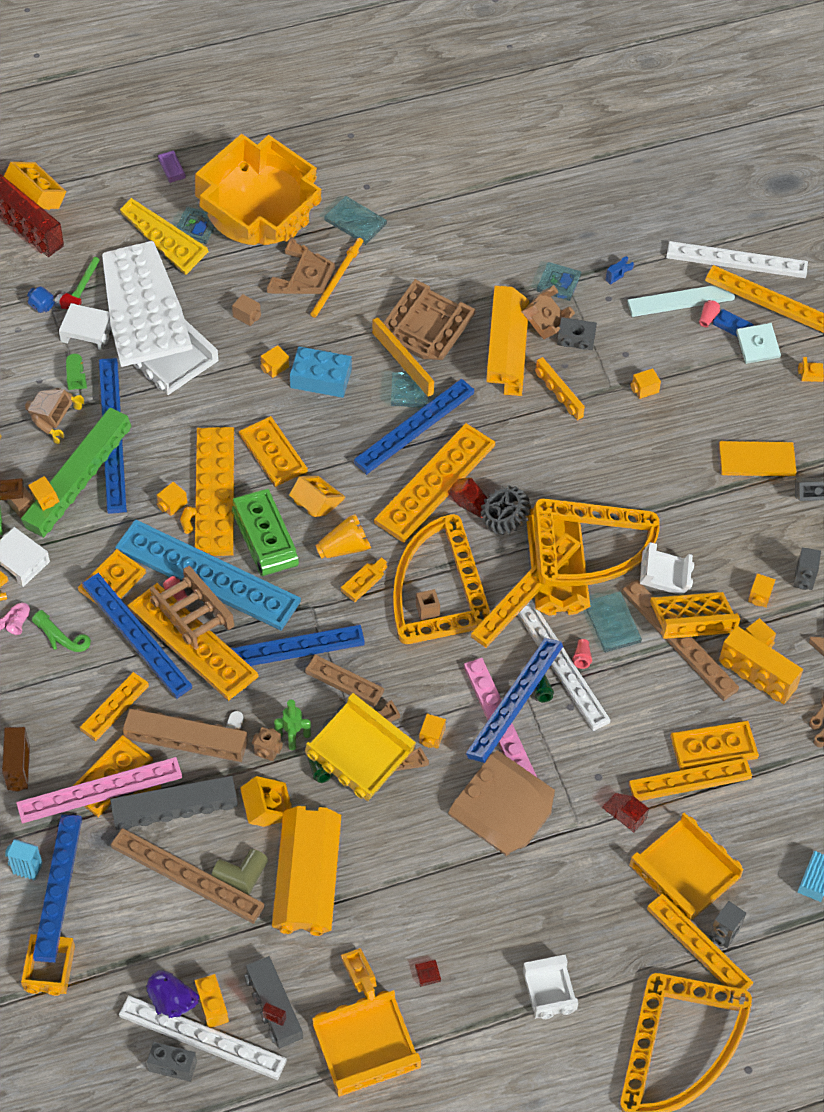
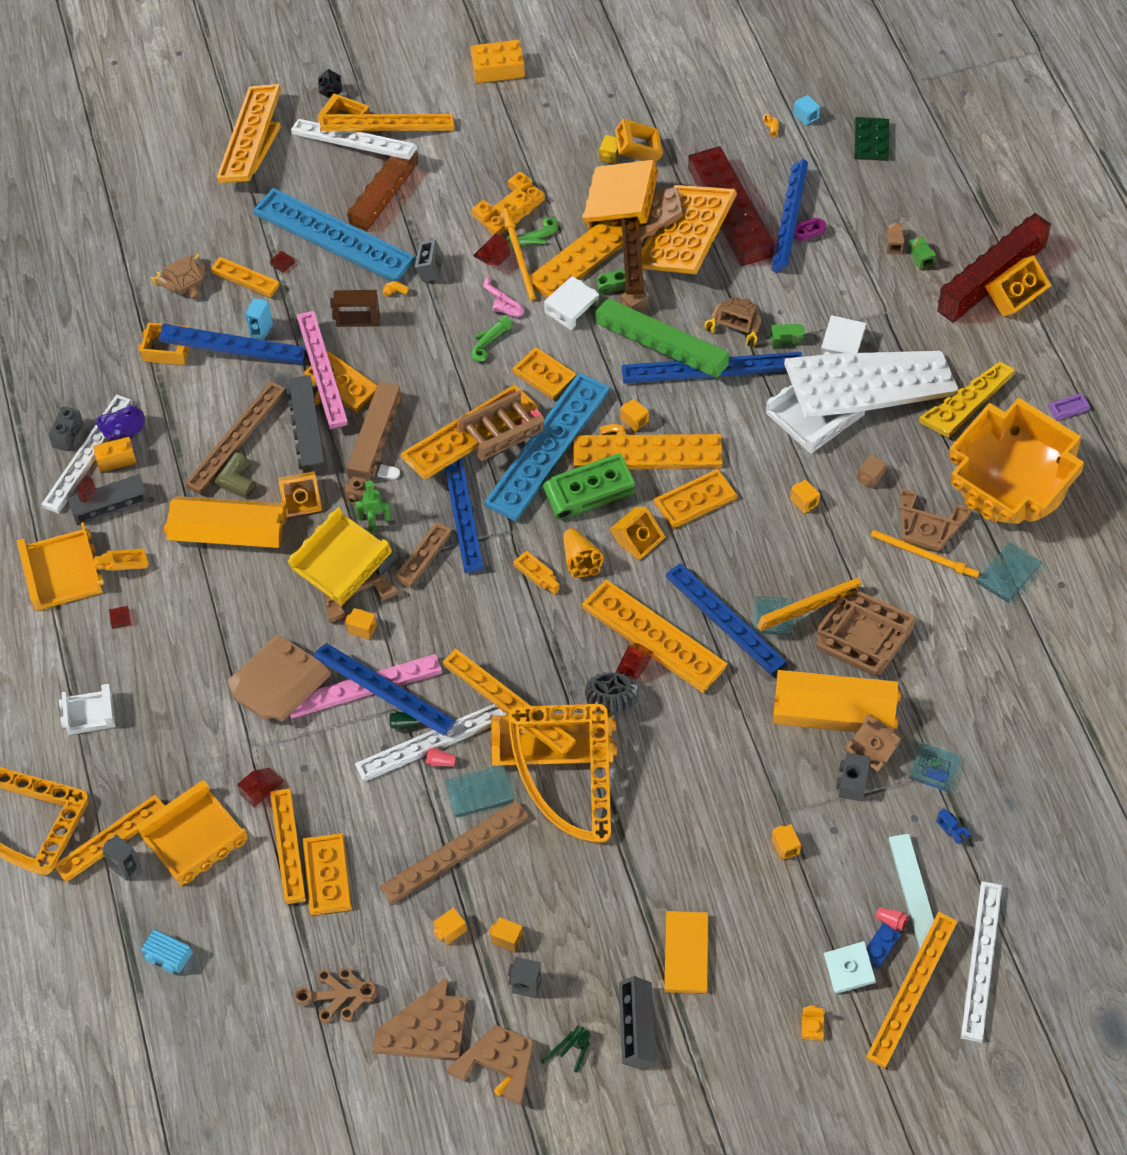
camera: 95 degrees right, 0 degrees up
(40, 299) = (875, 303): blue head -> none
(44, 493) = (627, 307): light orange brick -> none
(63, 300) = (879, 330): piece -> none
(114, 706) = (409, 380): light orange plate -> none
(137, 635) = (479, 390): blue plate -> none
(321, 372) = (791, 535): dark azure brick -> none
(427, 605) = (499, 620): medium nougat brick -> none
(471, 616) = (516, 663): light orange beam -> none
(560, 389) = (771, 758): light orange plate -> none
(666, 571) = (534, 839): white panel -> none
(694, 624) = (460, 862): light orange fence -> none
(760, 665) = (407, 916): light orange brick -> none

